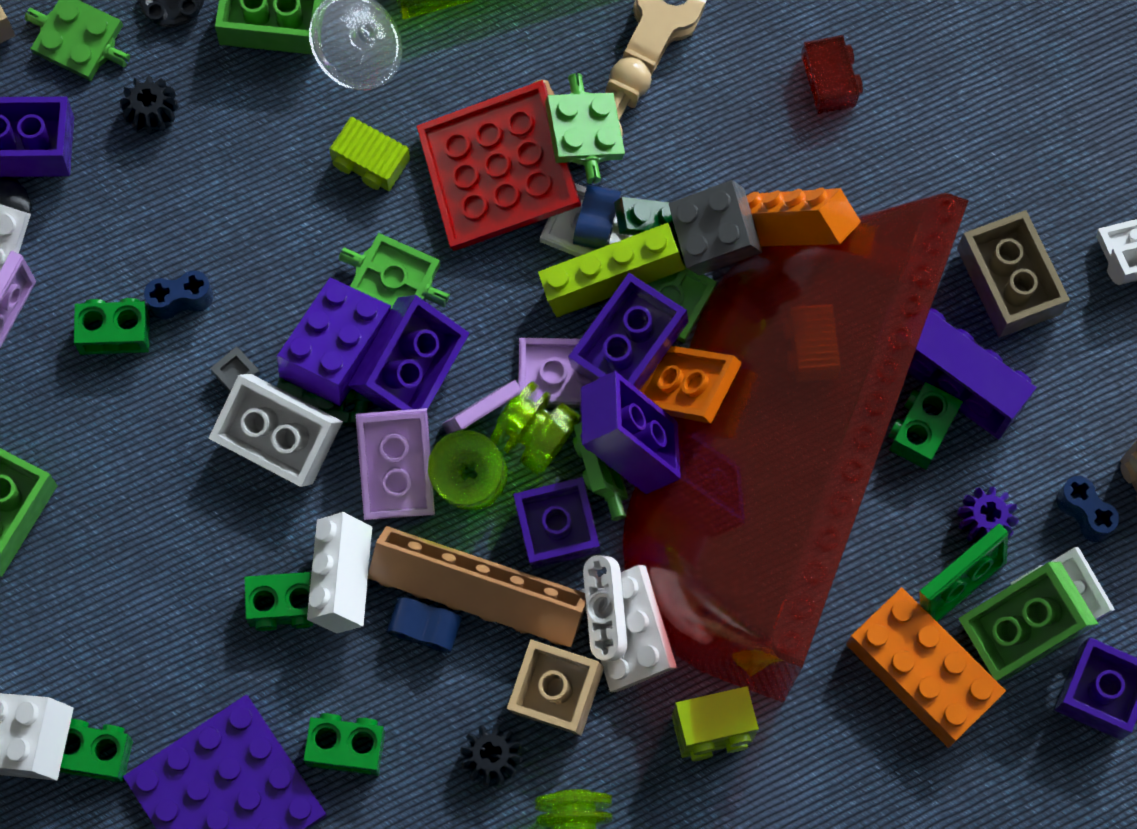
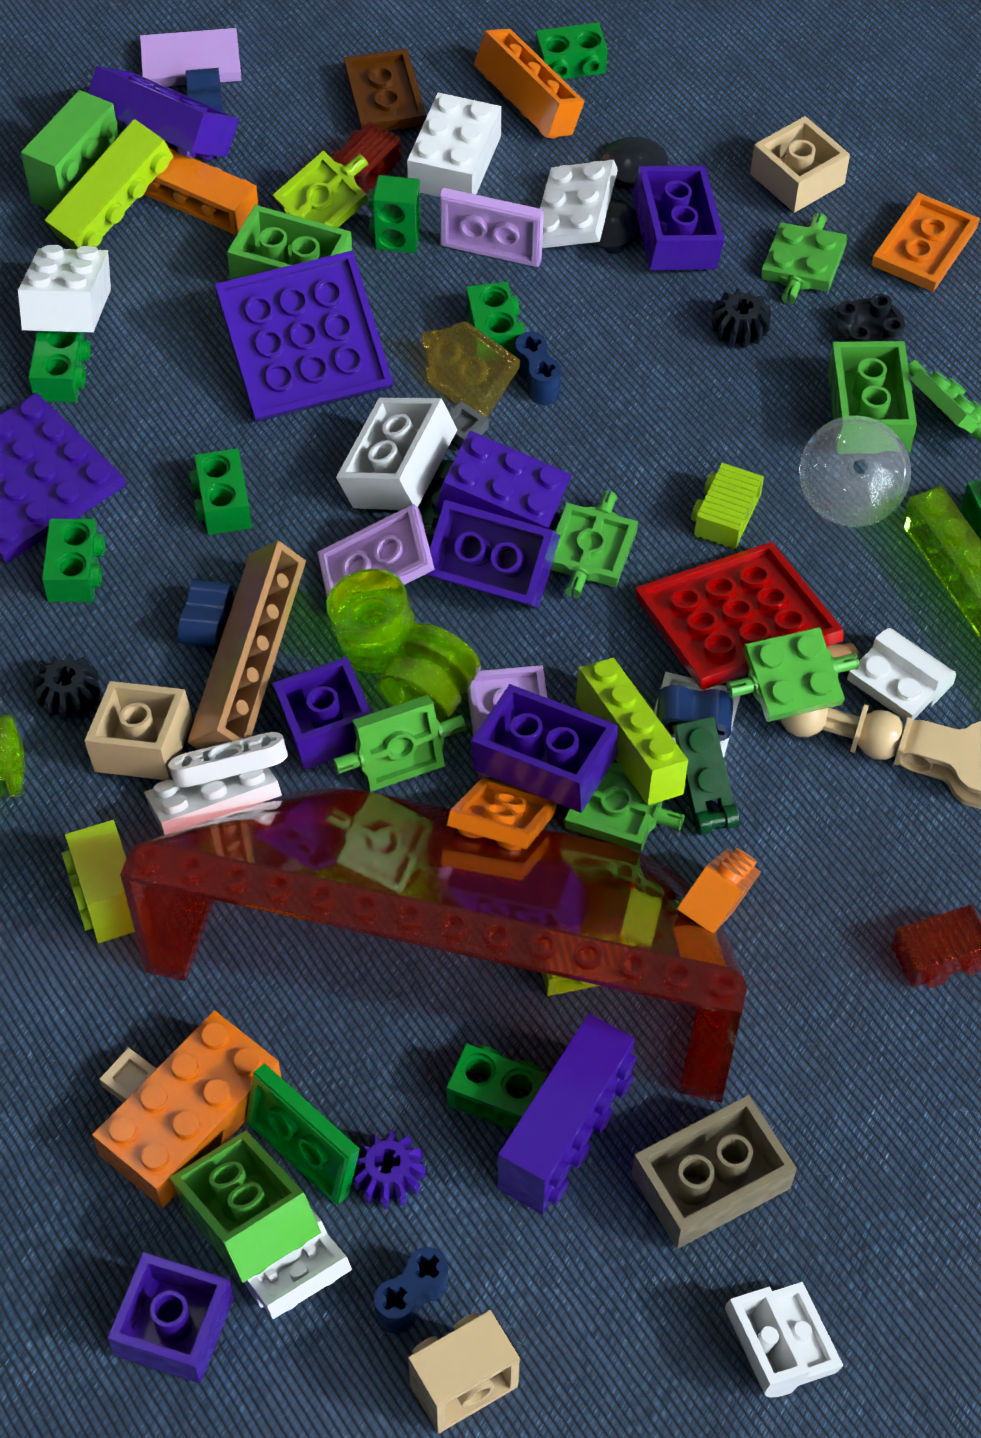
camera: 85 degrees right, 15 degrees down
(112, 503) = (303, 336): none -> dark purple plate
(169, 356) = (468, 366): none -> clear yellow tile
(339, 573) = (248, 522): white brick -> none
(482, 407) = (434, 607): lavender tile -> none
(572, 48) = (901, 675): none -> white brick
(630, 433) = (426, 750): dark purple brick -> none
(715, 227) = (694, 813): dark grey brick -> none
(890, 715) = (126, 1075): none -> tan plate

